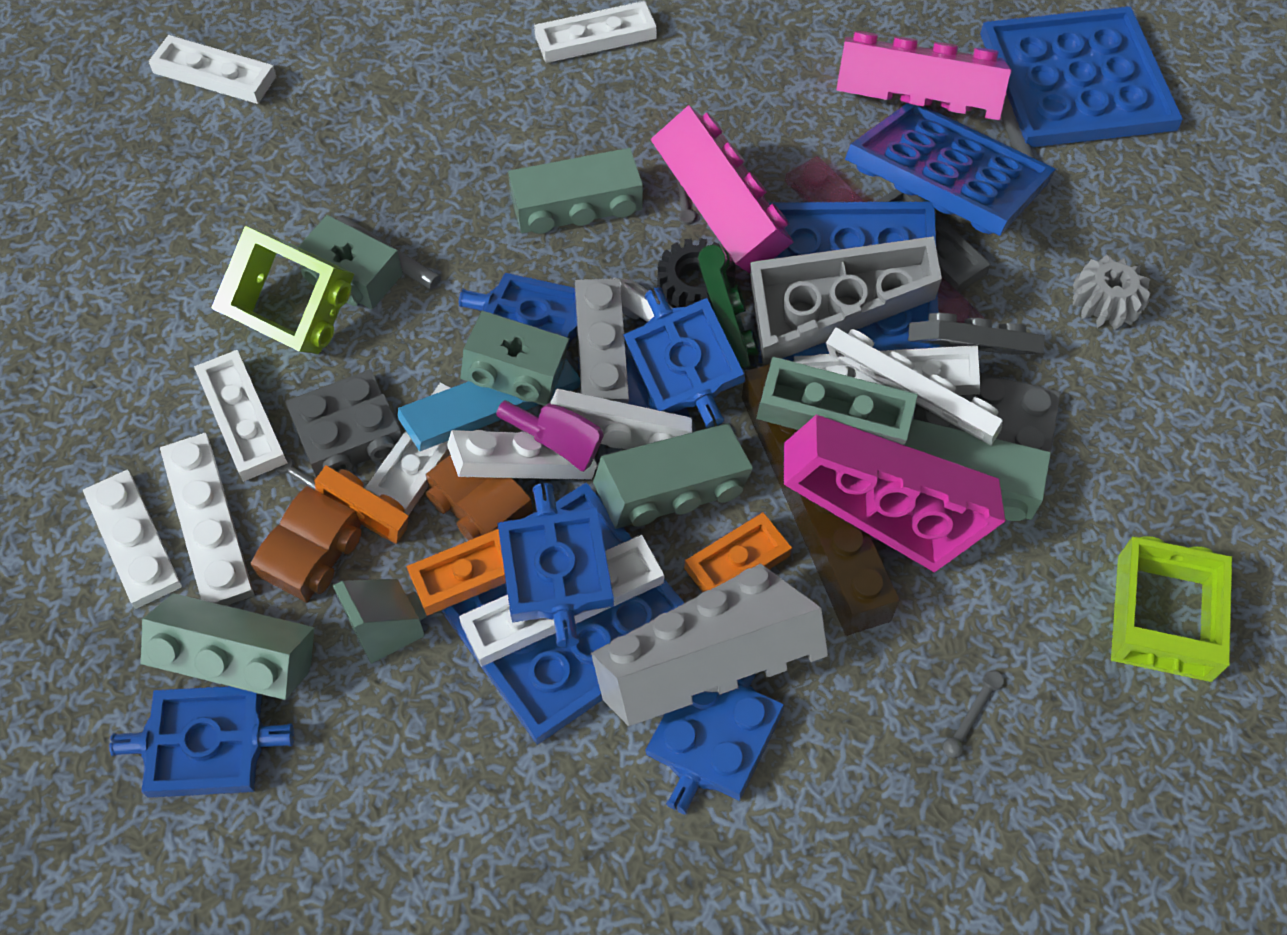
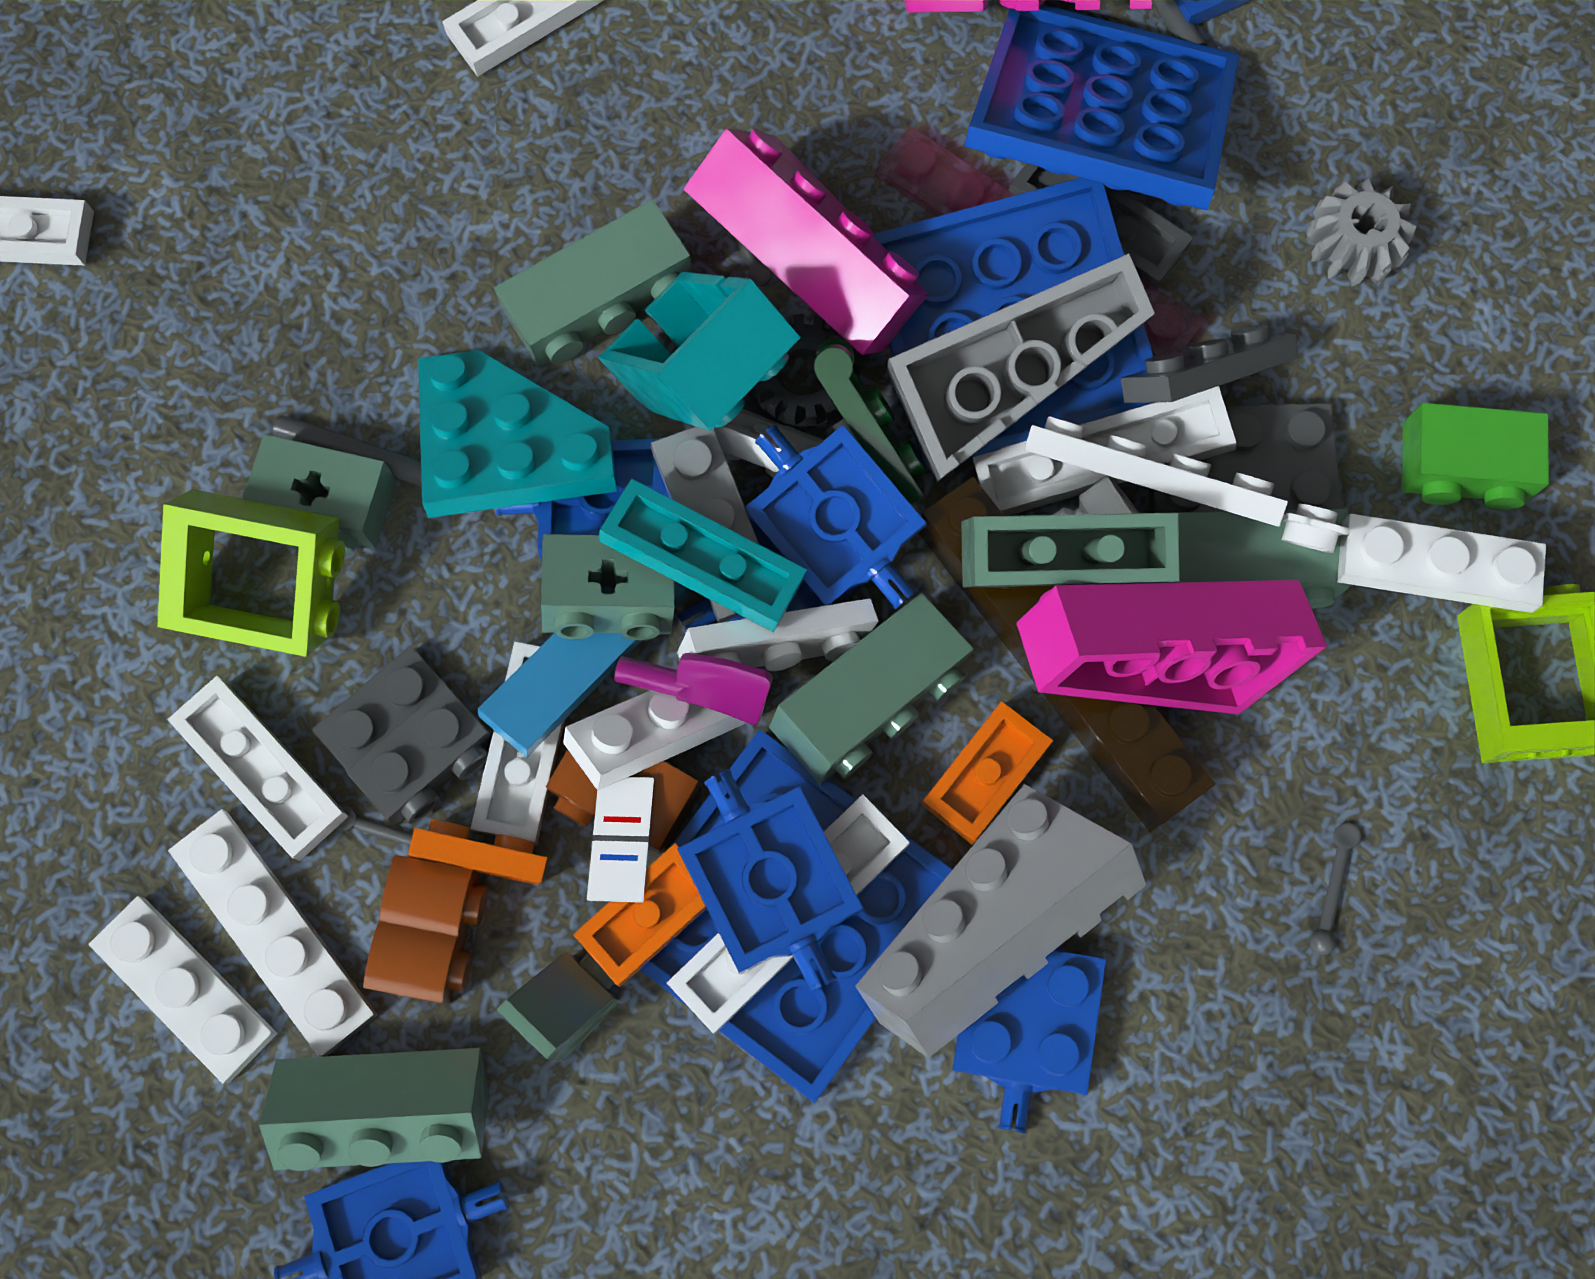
camera: 15 degrees left, 15 degrees up
(462, 516) = (621, 841): none -> white sticker
(480, 260) = (503, 439): none -> teal plate
(583, 349) = (702, 555): none -> teal plate
(629, 232) = (724, 342): none -> teal piece
(1019, 450) = (1313, 528): none -> white plate
(1110, 502) = (1442, 563): none -> white plate
(1157, 449) = (1475, 455): none -> bright green brick

